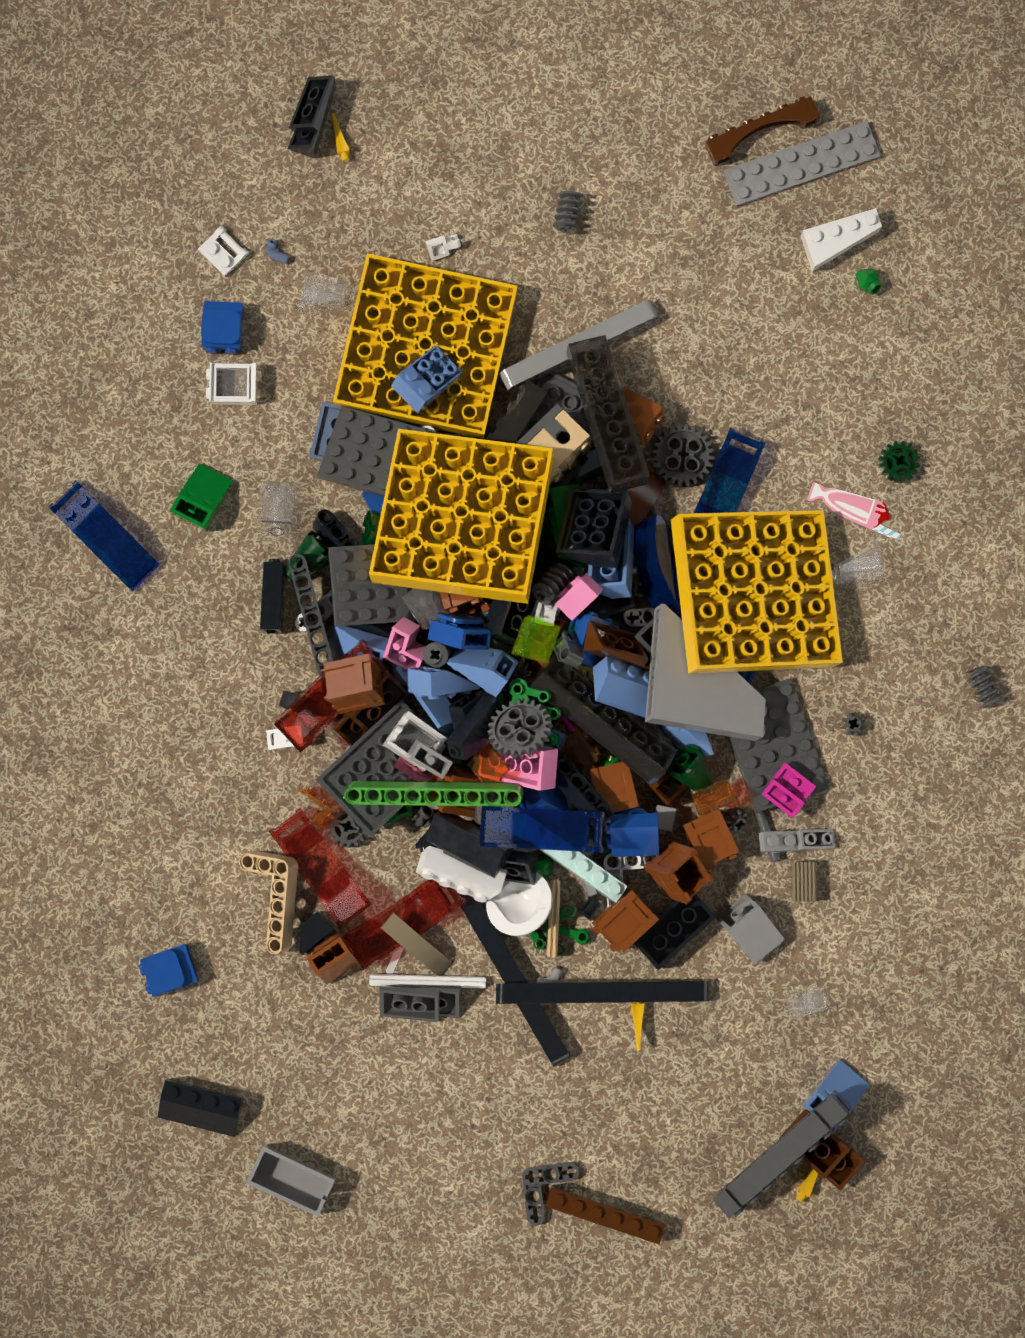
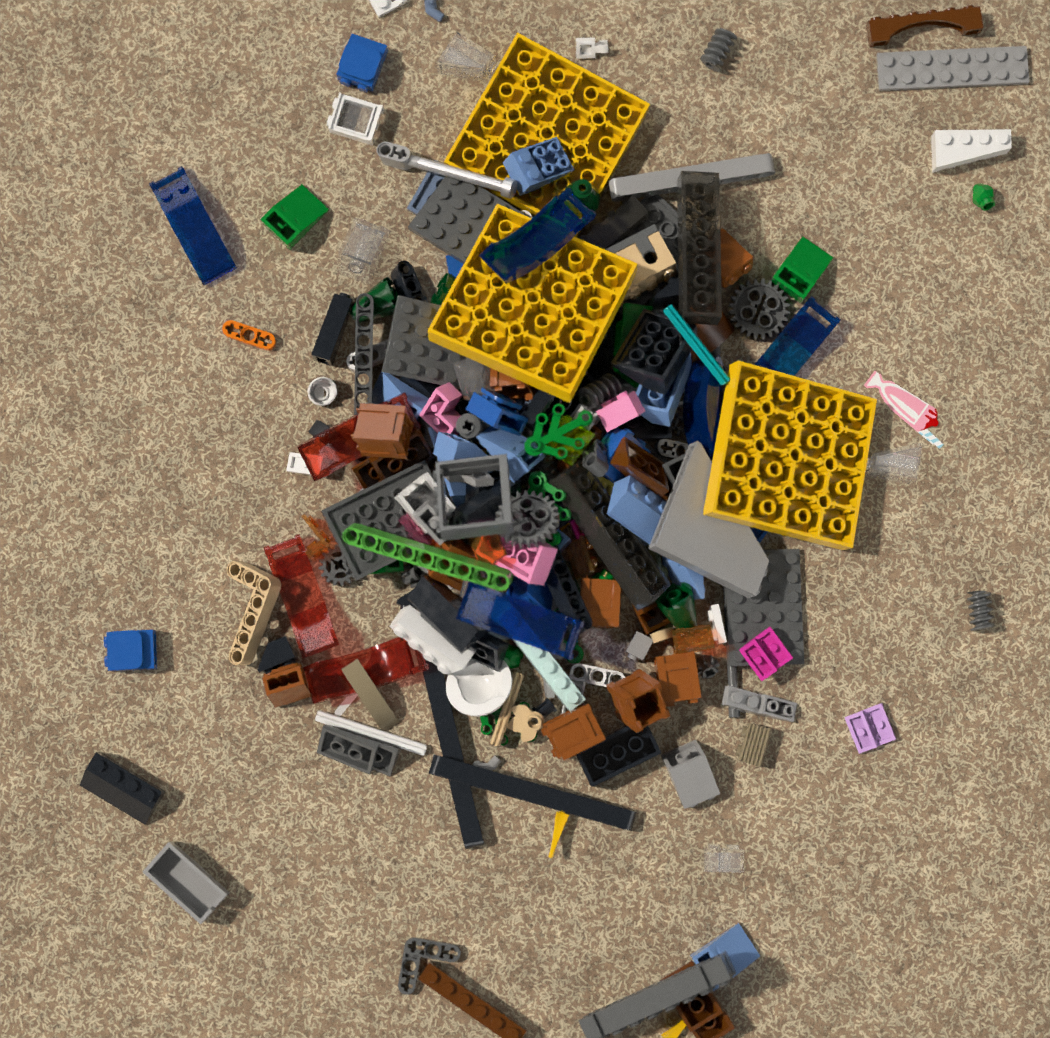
camera: 15 degrees right, 0 degrees up
(206, 622) = (237, 325): none -> orange beam
(274, 663) = (317, 388): none -> white hair
(297, 410) = (401, 158): none -> flat silver piece
(448, 452) = (537, 238): none -> clear blue windscreen
(448, 694) = (468, 466): none -> dark grey window
(455, 703) = (476, 479): none -> light grey tile
(477, 399) = (586, 194): none -> dark green cone
(522, 638) = (555, 434): none -> green plant
(573, 927) = (523, 722): none -> tan plate
(633, 510) = (696, 344): none -> teal axle
(633, 833) = (606, 651): blue brick -> none
(683, 801) = (662, 635): none -> tan beam
(713, 404) = (801, 269): none -> green slope
(729, 769) = (714, 616): none -> white plate
(847, 726) = (850, 609): dark grey gear -> none
(893, 457) = (967, 380): dark green gear -> none
(911, 832) = (870, 728): none -> lavender slope

